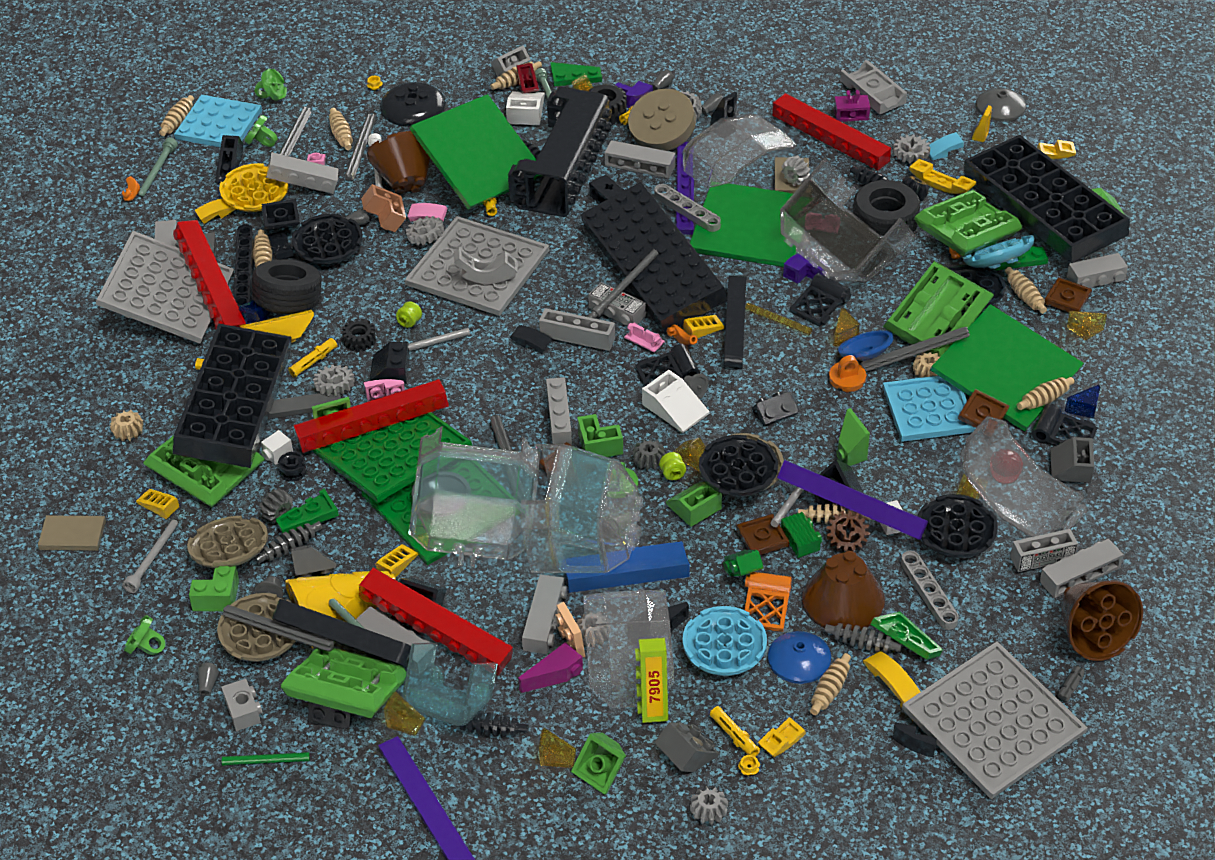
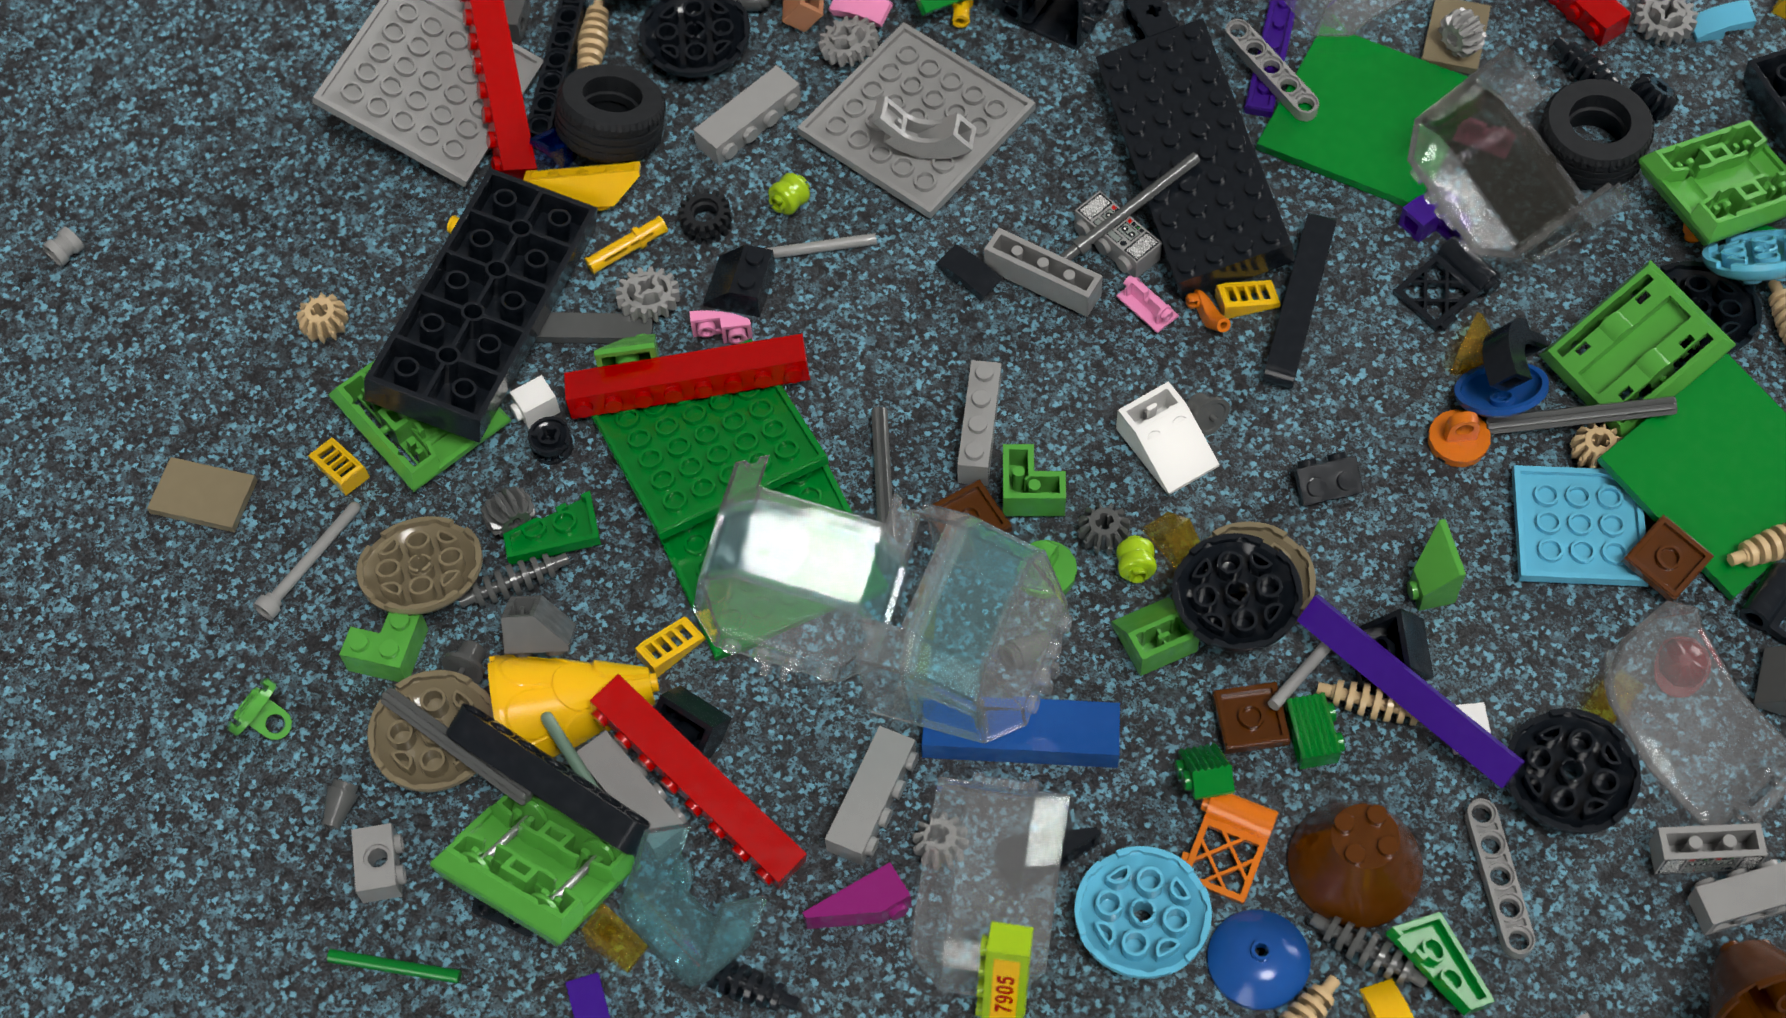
camera: 15 degrees right, 15 degrees up
(280, 245) = (624, 27): black slope -> none
(371, 278) = (747, 115): none -> light grey brick
(569, 629) = (901, 843): light nougat plate -> none
(679, 359) = (1194, 358): black piece -> none
(778, 318) = (1372, 306): clear yellow bar -> none
(855, 533) = (1403, 748): reddish brown gear -> none
(867, 323) = (1506, 353): none -> black arch
(940, 181) = (1700, 87): yellow slope -> none

